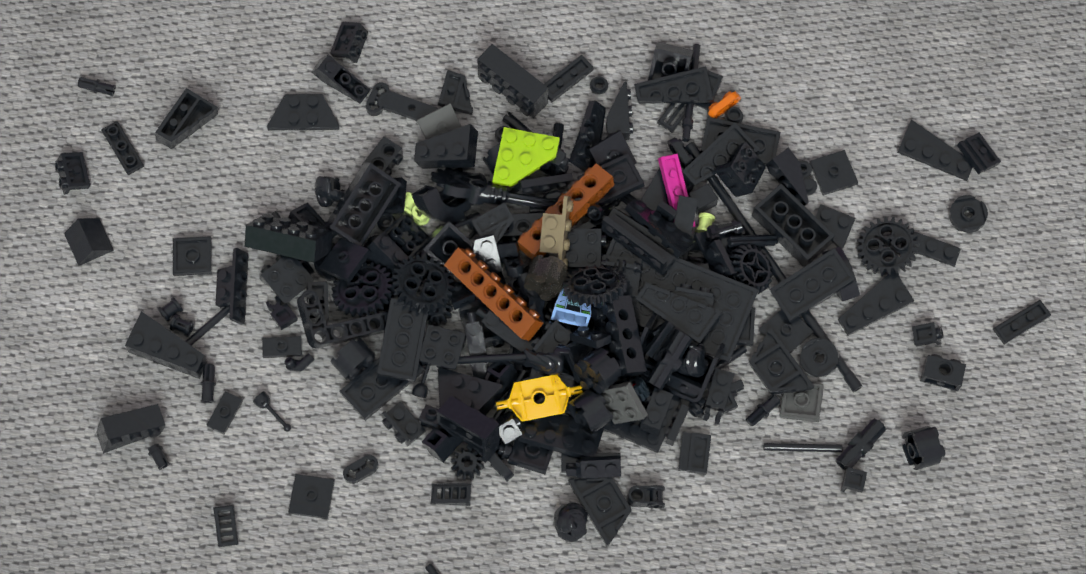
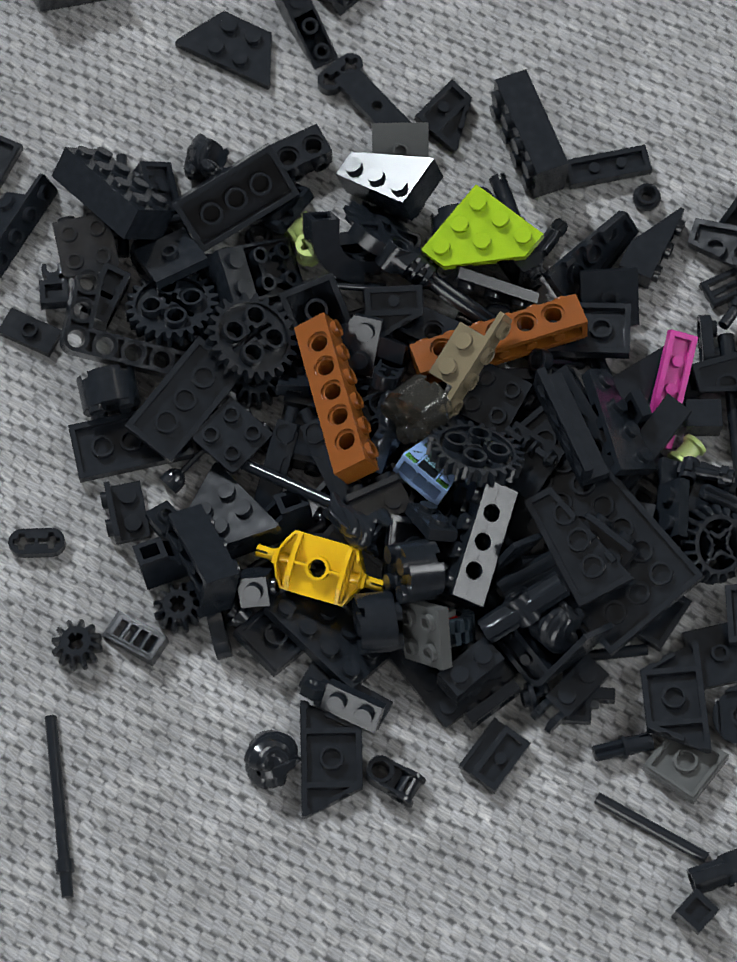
camera: 30 degrees right, 0 degrees up
(298, 365) = (37, 366): black arm -> none
(413, 519) = (75, 633): none -> black gear

